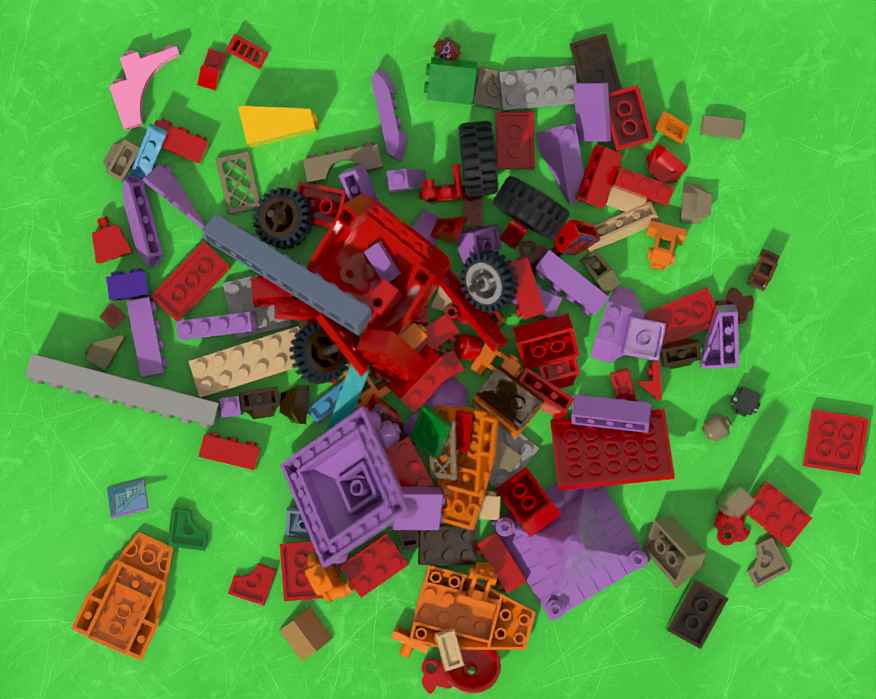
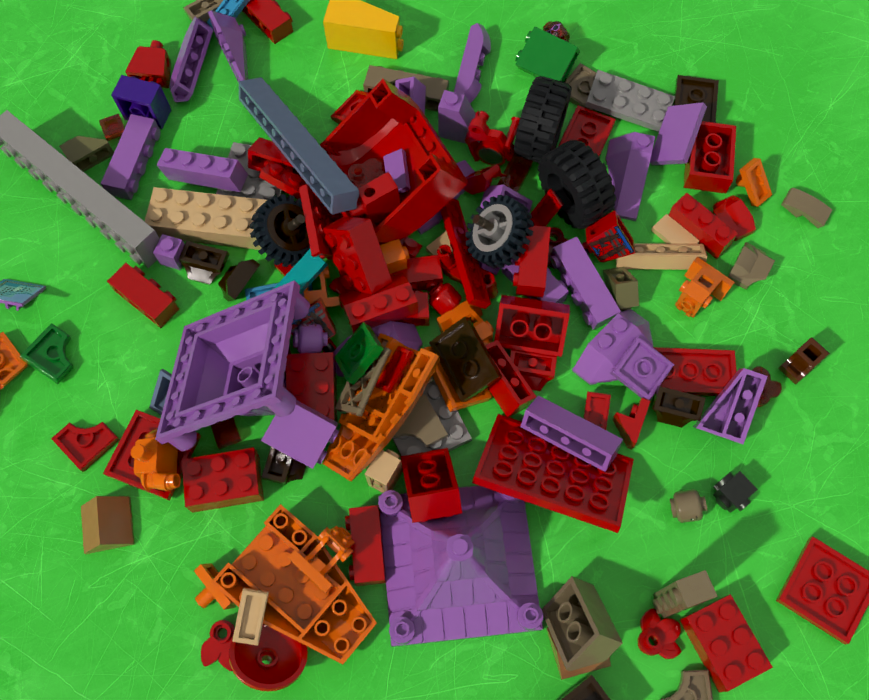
camera: 20 degrees right, 20 degrees down
(191, 281) = (205, 127): red plate -> none
(253, 189) = (293, 88): dark tan window -> none
(283, 218) = (323, 104): wheel -> none
(447, 546) = (315, 496): dark brown plate -> none
(599, 177) = (658, 197): red brick -> none

